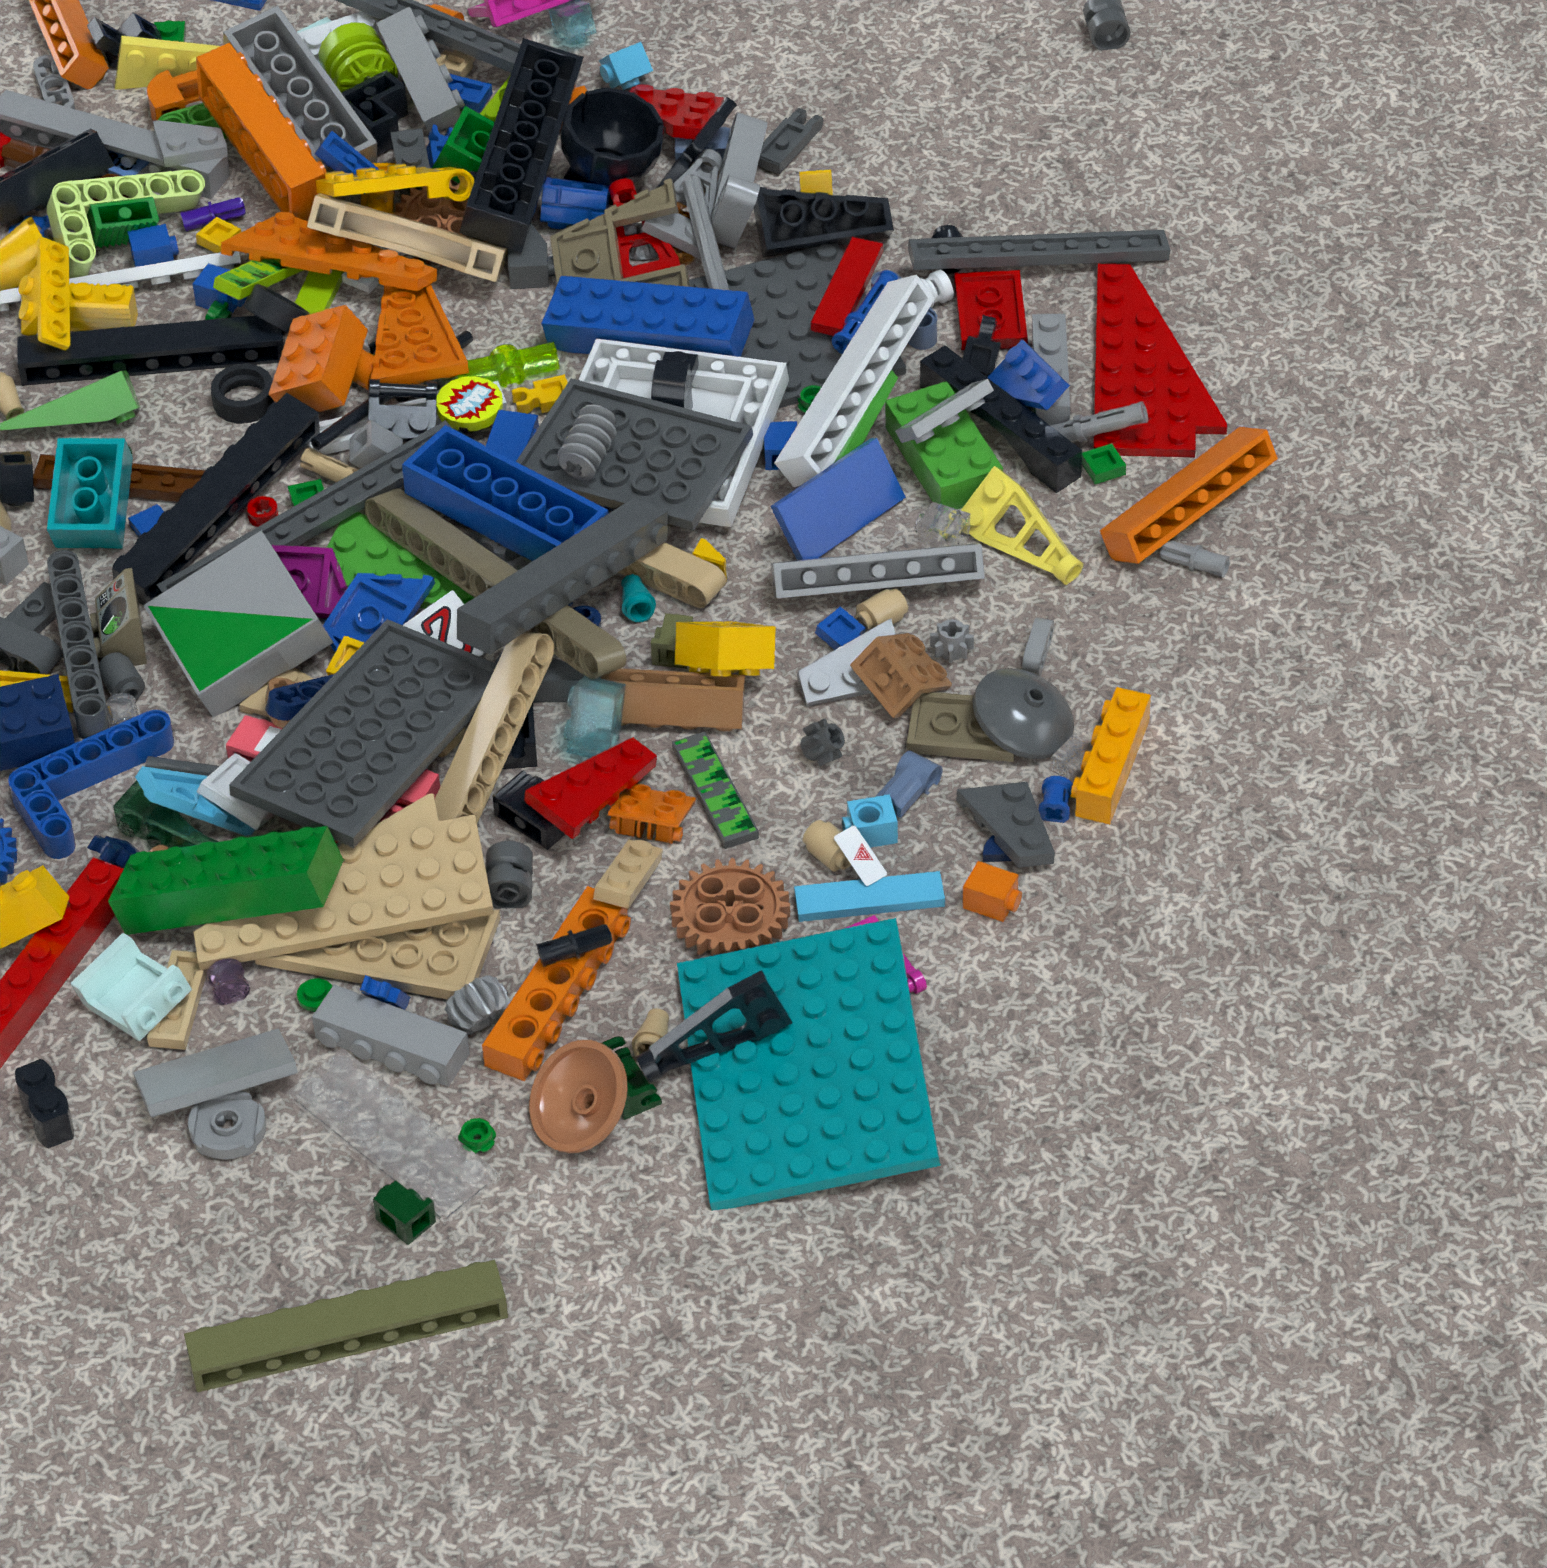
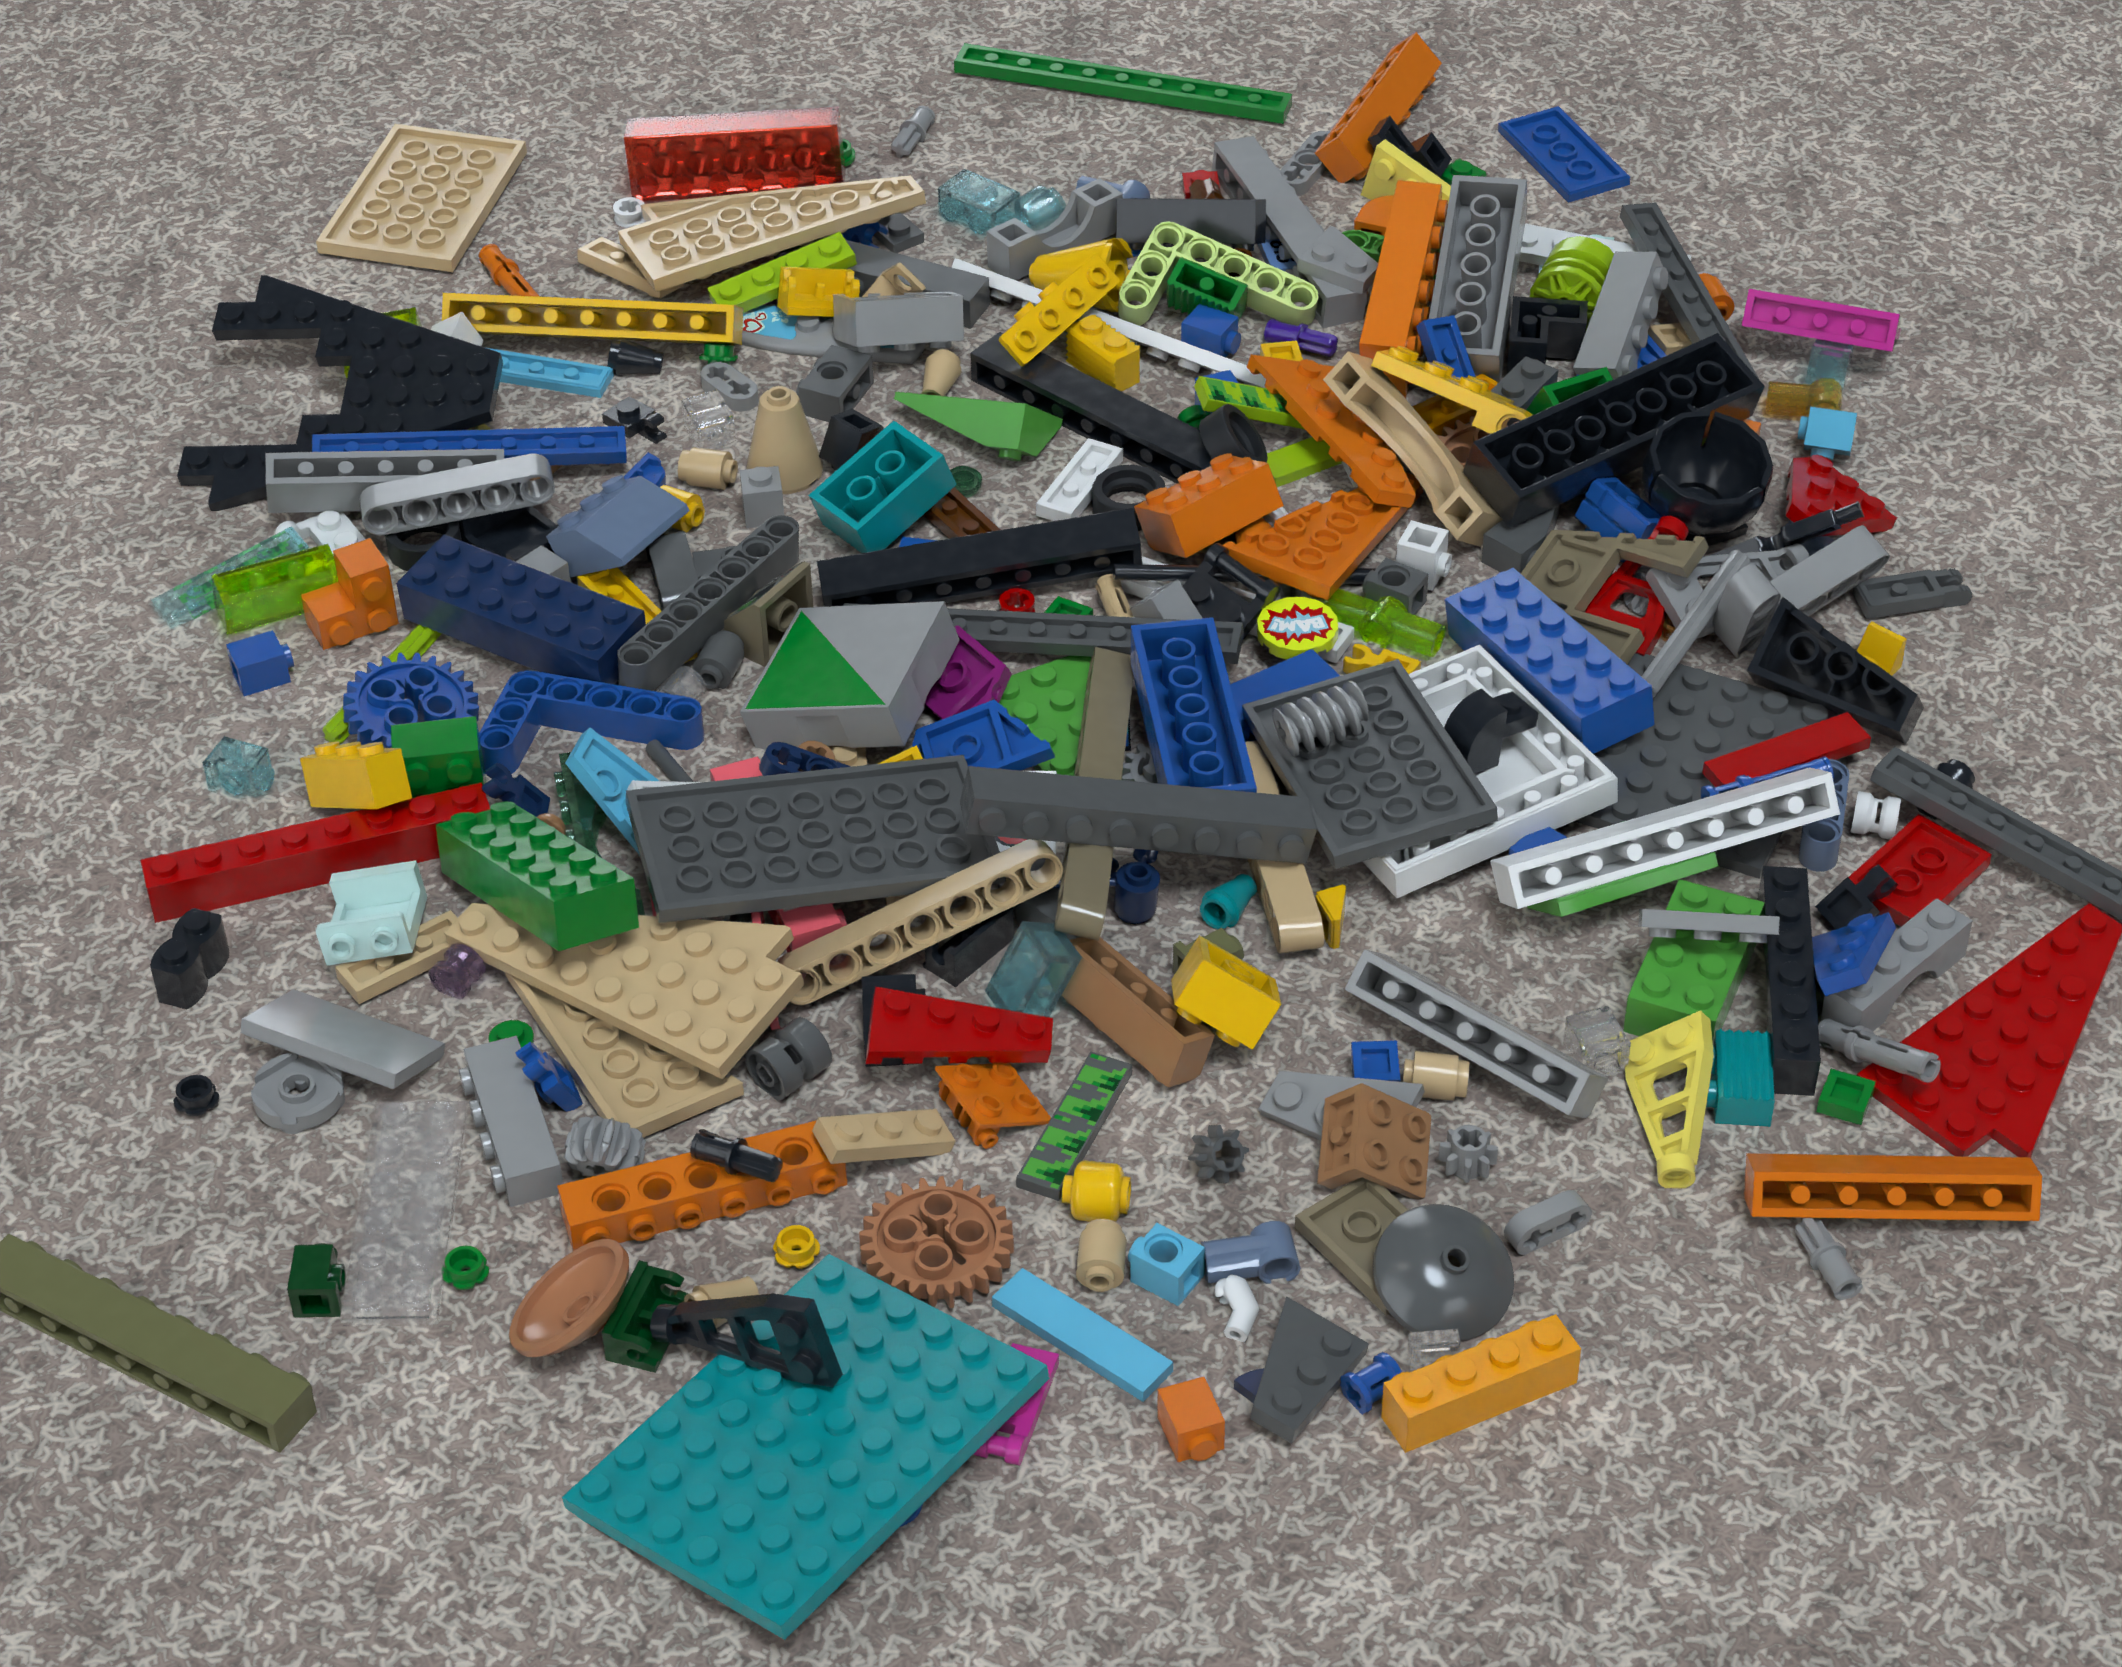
camera: 45 degrees right, 5 degrees down
(53, 846) = (440, 754): none -> green brick
(164, 1169) = (195, 1095): none -> black plate
(196, 404) = (1073, 487): none -> white plate
(485, 306) = (1425, 549): none -> white brick
(487, 335) = (1398, 582): none -> dark grey brick
(591, 47) = (1796, 399): none -> clear yellow piece
(650, 967) = (796, 1237): none -> yellow plate
(781, 814) = (1097, 1191): none -> yellow head
(838, 501) = (1518, 942): blue tile -> none
(860, 855) = (1107, 1284): white sticker -> none
(938, 815) = (1243, 1303): none -> white arm
(1048, 490) = (1742, 1078): none -> teal brick

